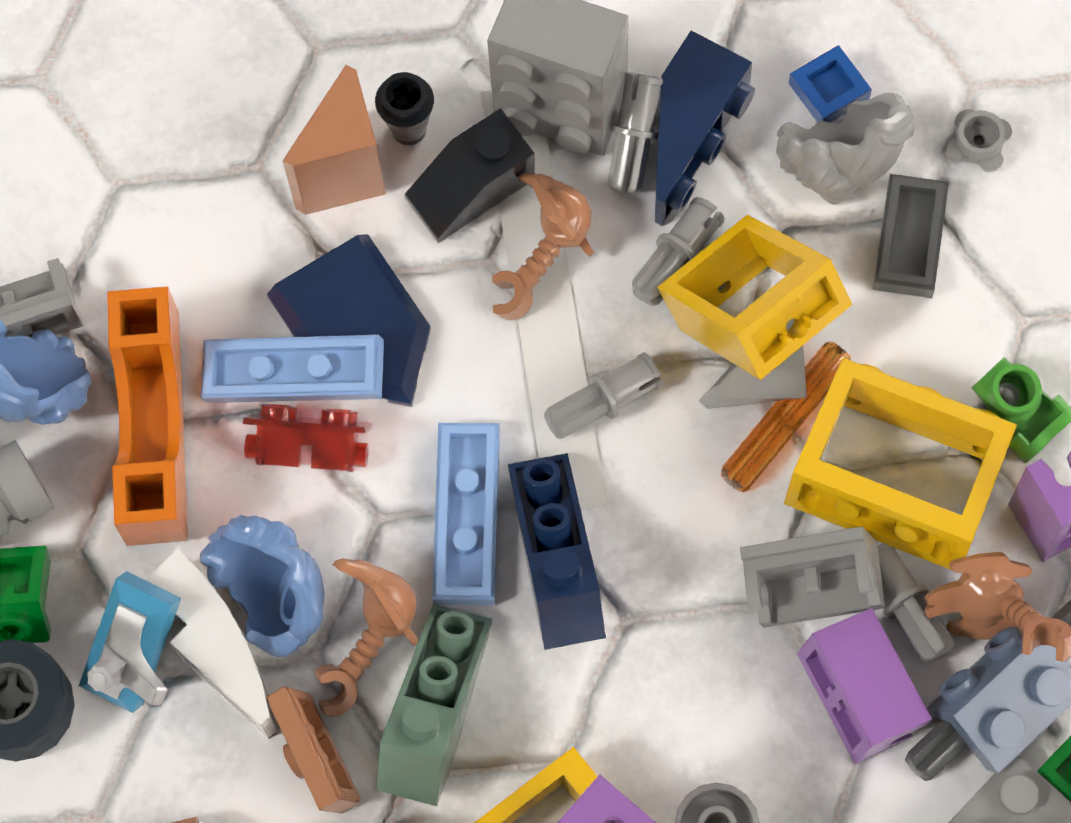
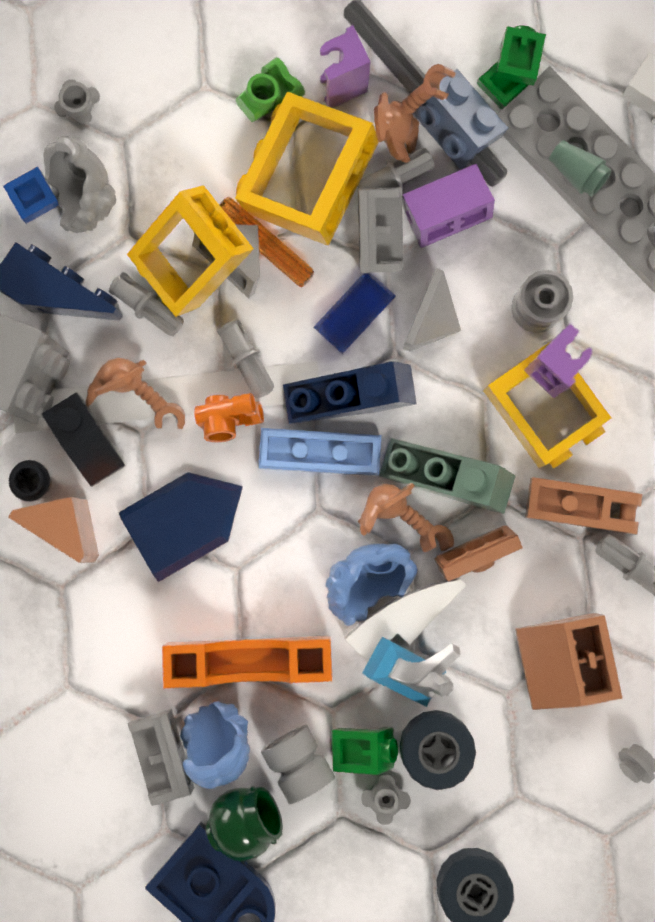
camera: 95 degrees left, 15 degrees up
(283, 433) = (258, 573): clear red hinge -> none
(292, 369) = (216, 564): light blue tile -> none
(516, 366) = (222, 415): none -> orange plate
(634, 132) = (60, 326): light grey axle -> none
(687, 556) = (354, 312): none -> clear blue tile
(687, 670) = (435, 316): none -> light grey slope
(911, 236) = (142, 152): dark grey tile -> none

